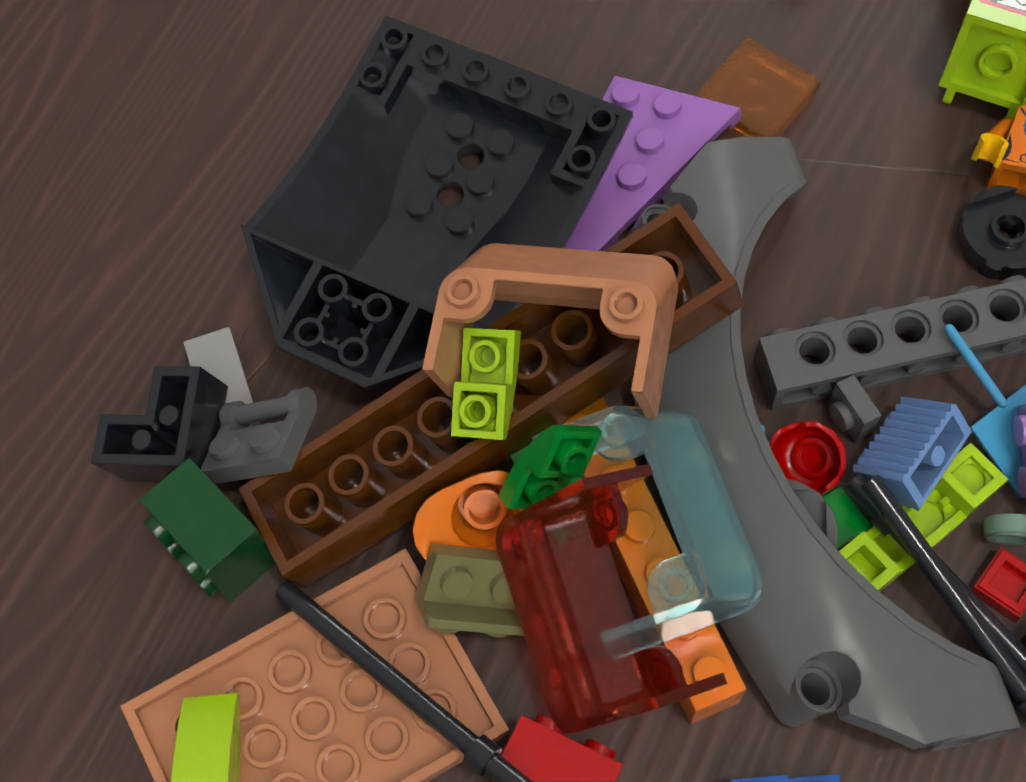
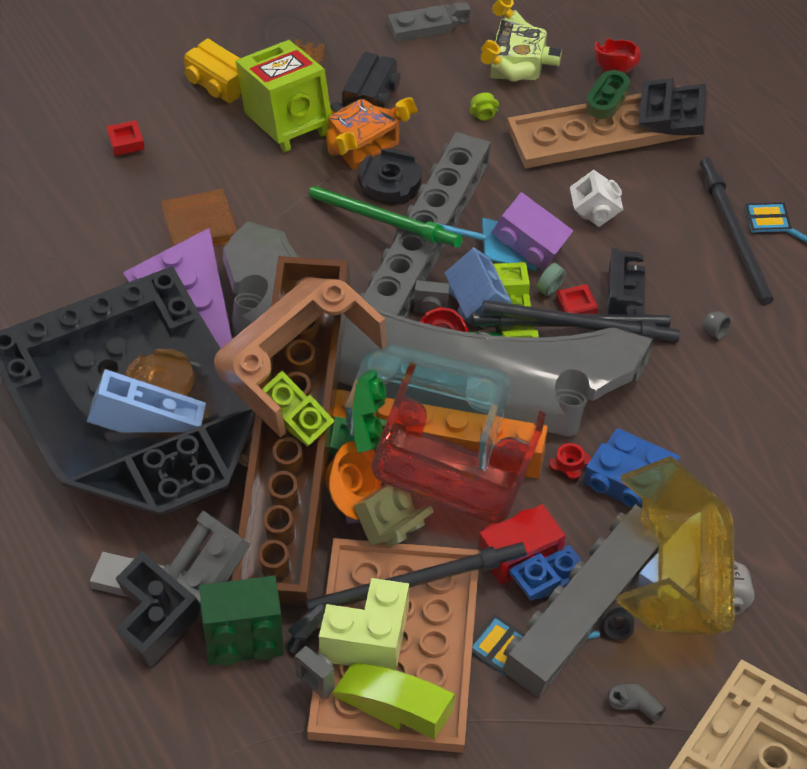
camera: 60 degrees left, 15 degrees down
(186, 662) = (315, 671): none -> dark grey plate
(262, 607) = (306, 628): none -> black bar
(277, 694) = (369, 634): none -> yellowish green brick
(414, 222) = (140, 407): none -> light blue slope
(482, 212) = (164, 369): none -> clear orange tile
(749, 734) = (572, 453): none -> red plate
(932, 336) = (429, 231): none -> green bar

